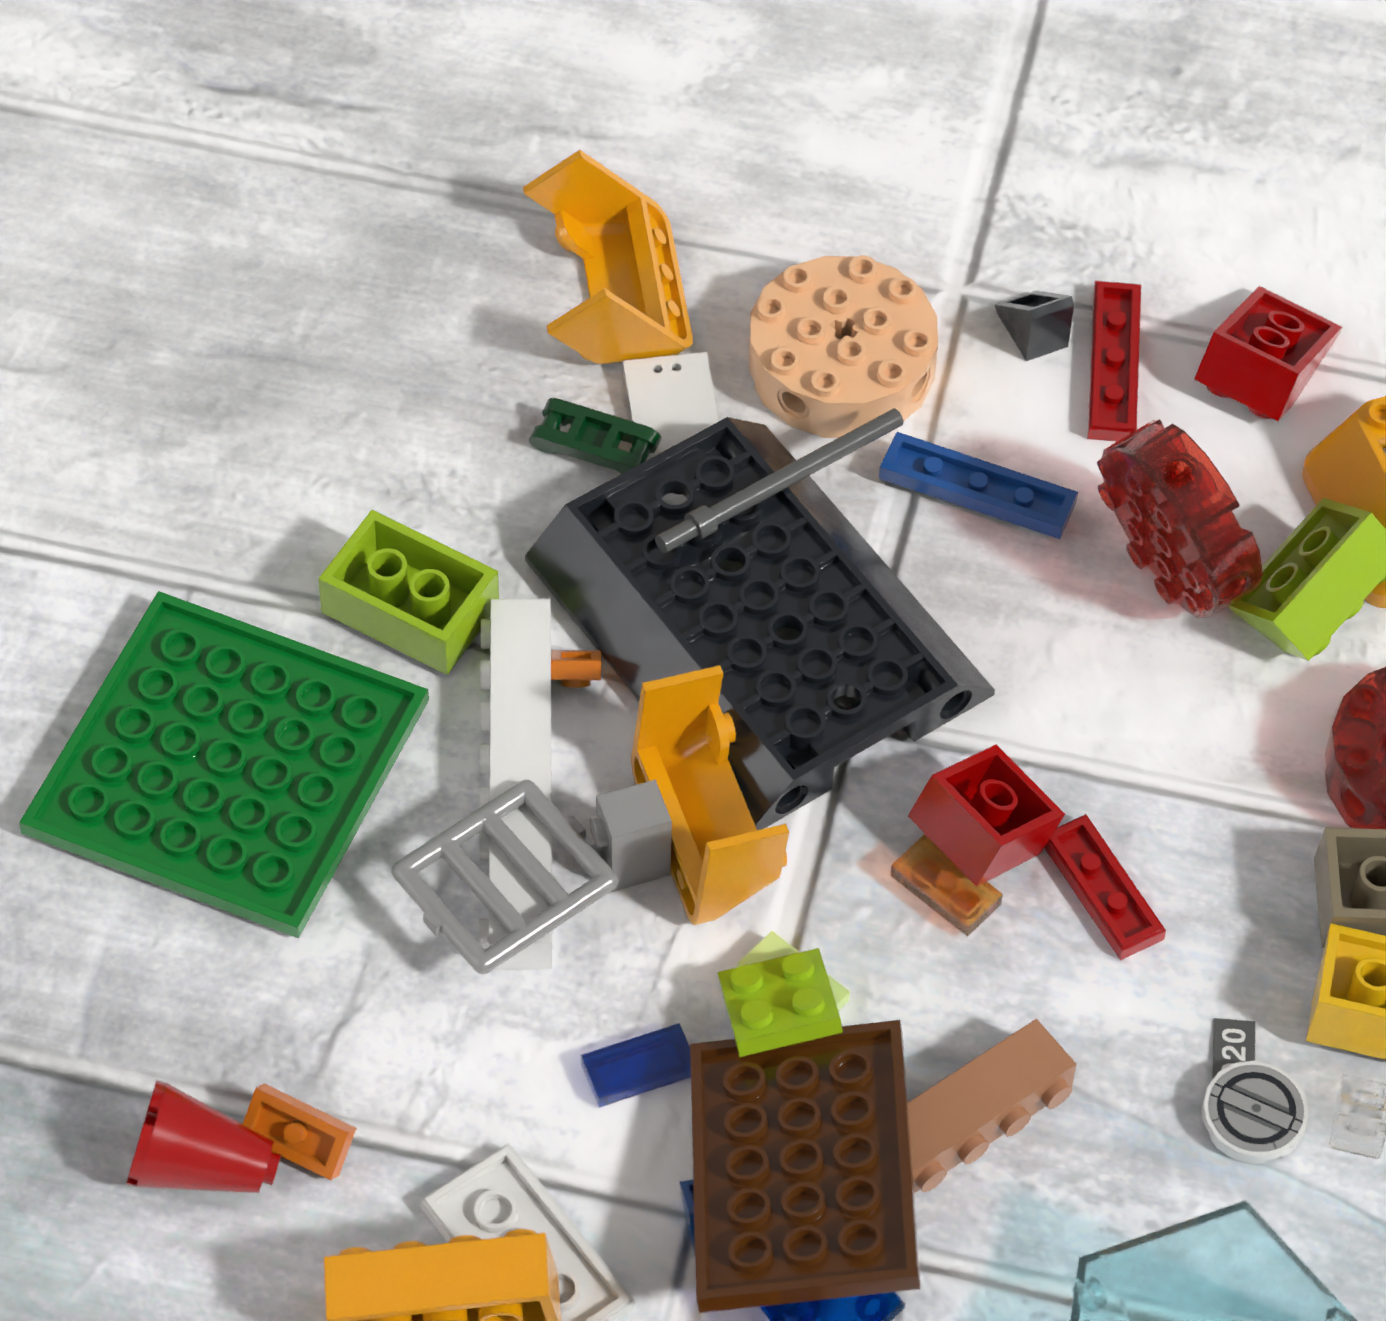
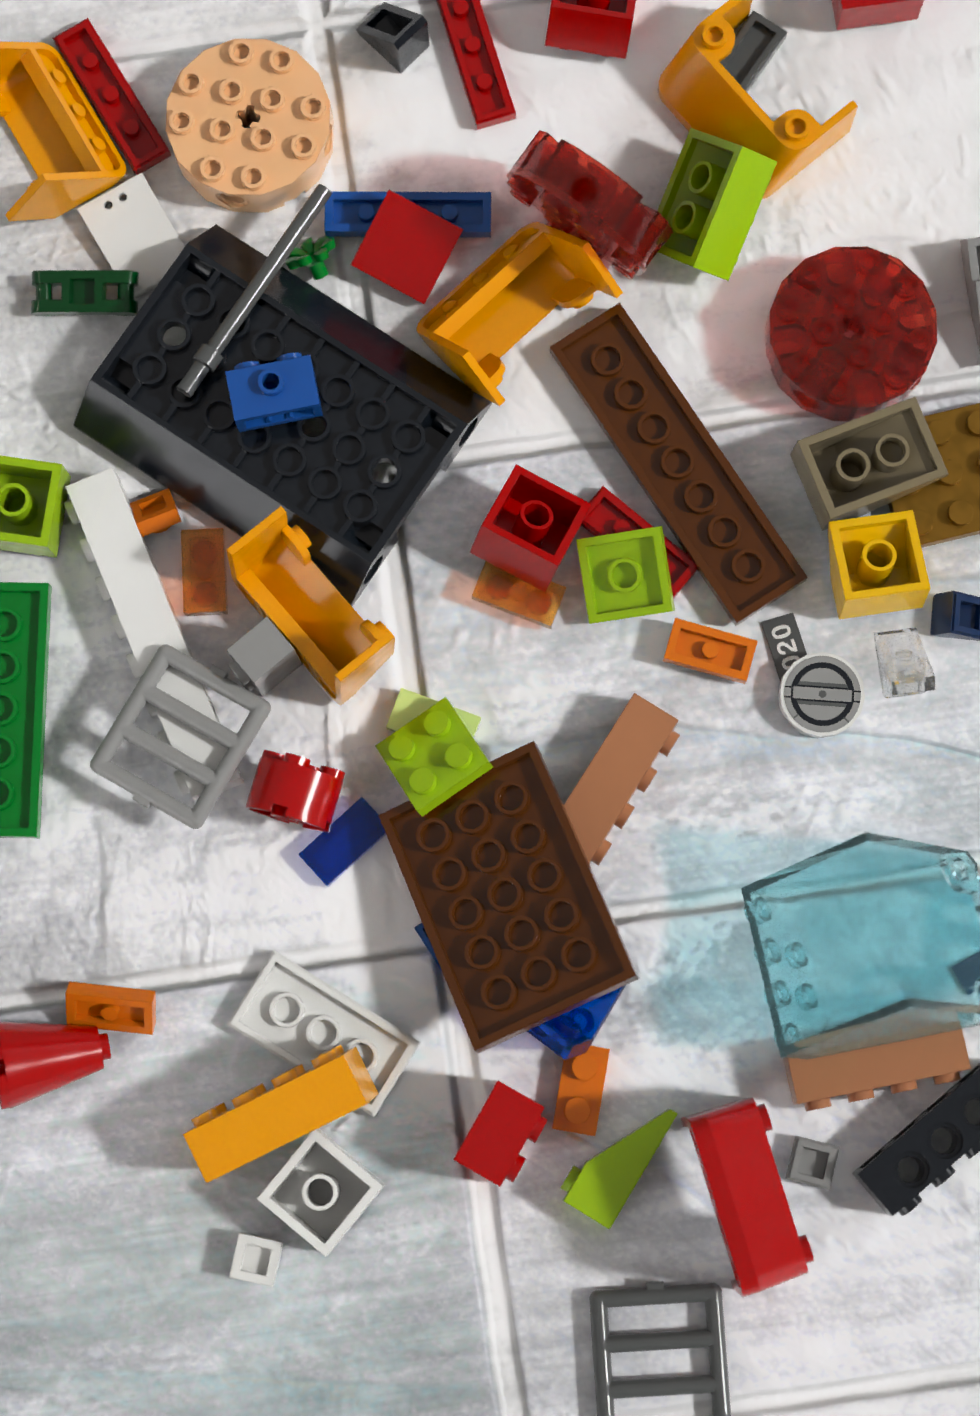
camera: 15 degrees left, 25 degrees up
(601, 742) = (204, 572): none -> clear orange plate
(607, 979) = (295, 791): none -> red brick
(706, 278) = (112, 97): none -> red tile
(758, 576) = (273, 392): none -> blue brick
(856, 488) = (312, 256): none -> green plant
(963, 510) = (406, 246): none -> red tile
(1061, 599) = (508, 299): none -> light orange windscreen
(1075, 904) = (625, 575): none -> lime plate
(1142, 1019) = (710, 651): none -> orange plate
(1181, 825) = (678, 464): none -> reddish brown plate

